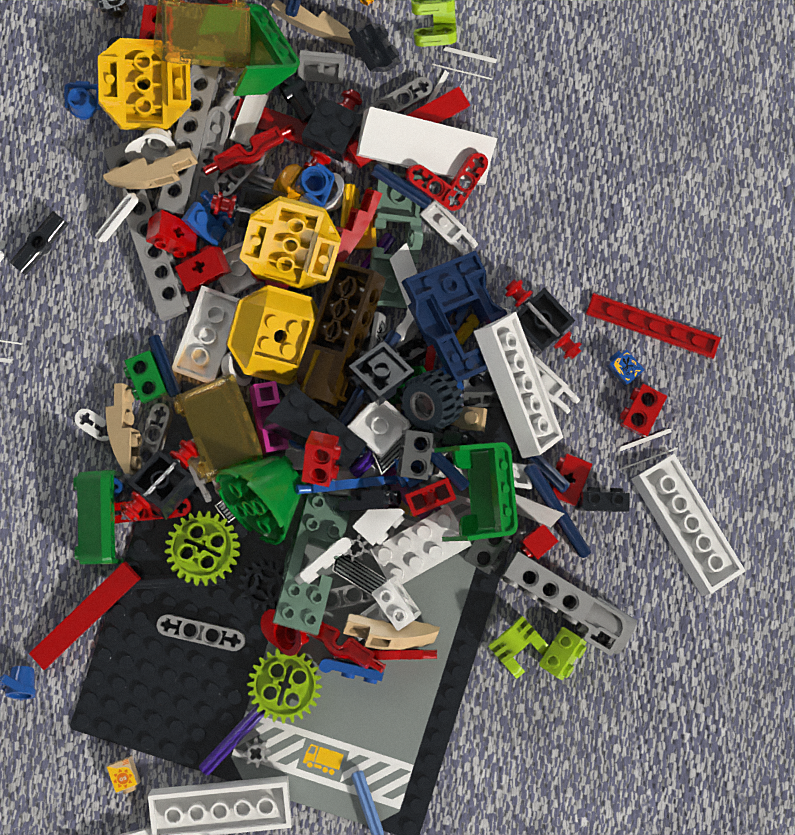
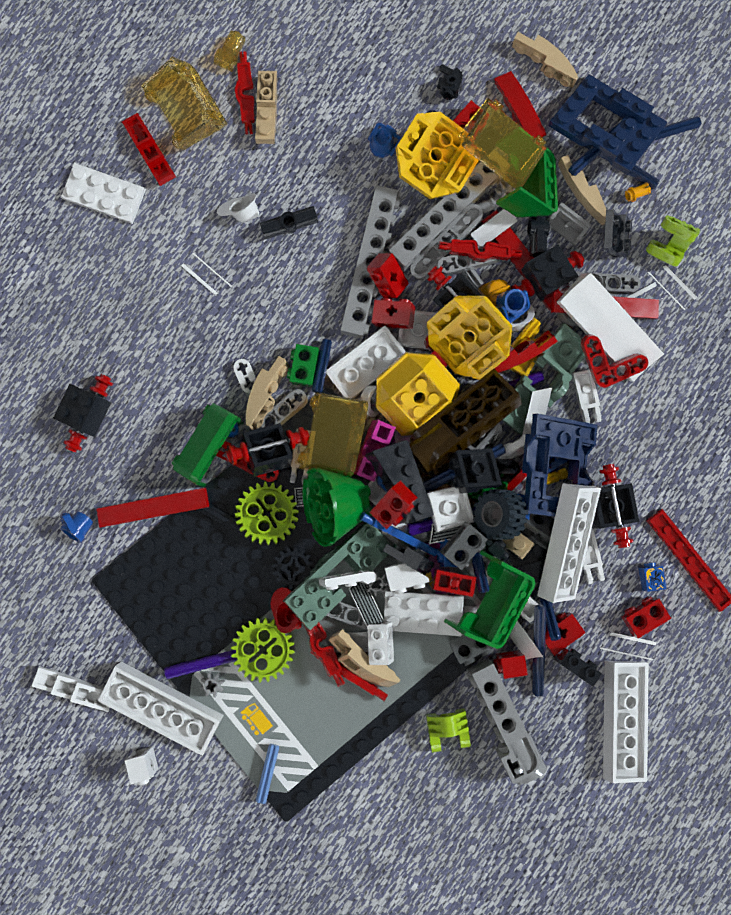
camera: 25 degrees right, 0 degrees up
(117, 217) = (356, 238): white axle -> none
(124, 775) = (108, 639): brick -> none
(143, 175) = (393, 219): tan slope -> none
(152, 145) = (411, 205): white piece -> none
(200, 635) = (224, 575): light grey beam -> none
(204, 224) = (414, 281): blue plate -> none
(350, 669) = (316, 668): blue plate -> none
(401, 185) = (573, 344): dark blue axle -> none
(563, 653) = (476, 756): lime bracket -> none

